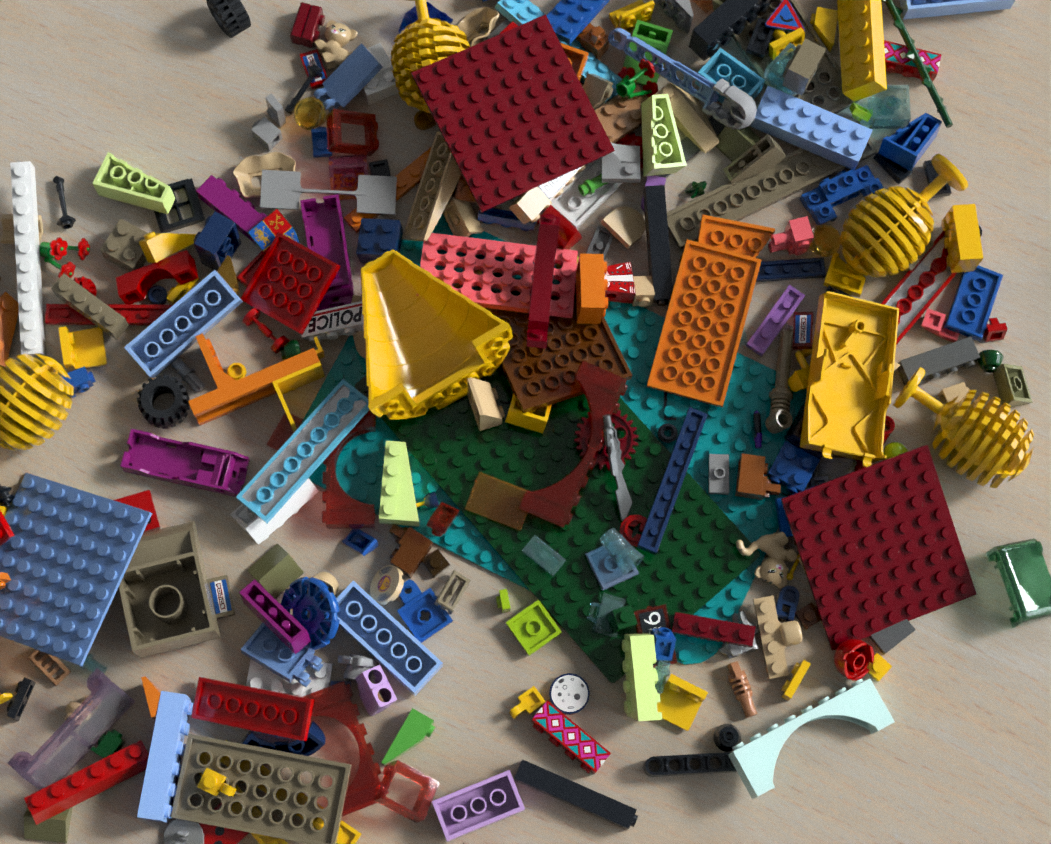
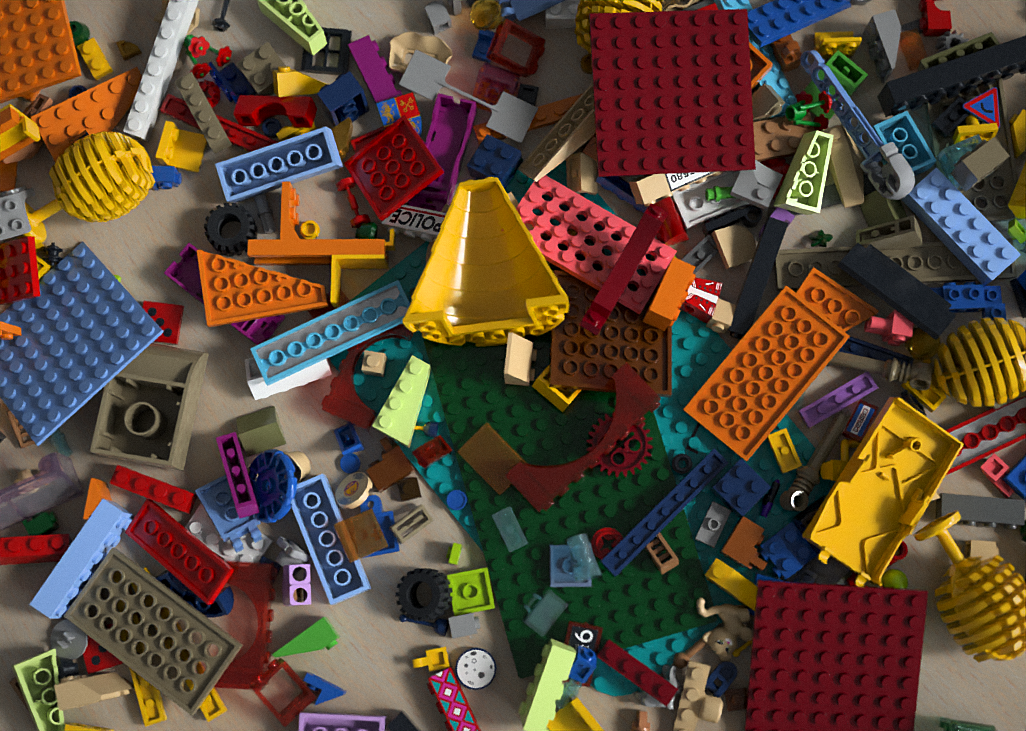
camera: 35 degrees right, 5 degrees up
(101, 269) = (231, 82): none -> clear blue bracket
(200, 666) = (153, 489): none -> red brick
(207, 450) = (247, 292): none -> orange wing
(214, 783) = (113, 604): yellow plate -> none
(221, 596) = (202, 433): tile -> none
(353, 464) = (374, 363): none -> tan brick
(371, 564) = (350, 463): none -> blue piece
(413, 620) = (360, 535): none -> clear orange tile
(447, 772) = (329, 690): none -> blue slope
(476, 647) = (408, 597): none -> black tyre
(483, 553) = (456, 500): none -> blue piece
(519, 671) = (439, 626): none -> dark blue hinge
(541, 659) = (464, 625): none -> light grey brick
(612, 202) = (732, 217): none -> black plate
(616, 466) = (615, 476): dark grey sword -> none
(621, 619) = (554, 623): dark green brick -> none
(695, 527) = (663, 568): none -> medium nougat slope
(728, 431) = (740, 488): none -> dark blue brick
(745, 603) = (681, 659): none -> medium nougat bar
(750, 383) = (784, 451): none -> yellow plate
(760, 515) = (732, 583): none -> yellow slope
(783, 202) = (898, 289): none -> black slope
(834, 269) = (918, 376): none -> dark tan piece

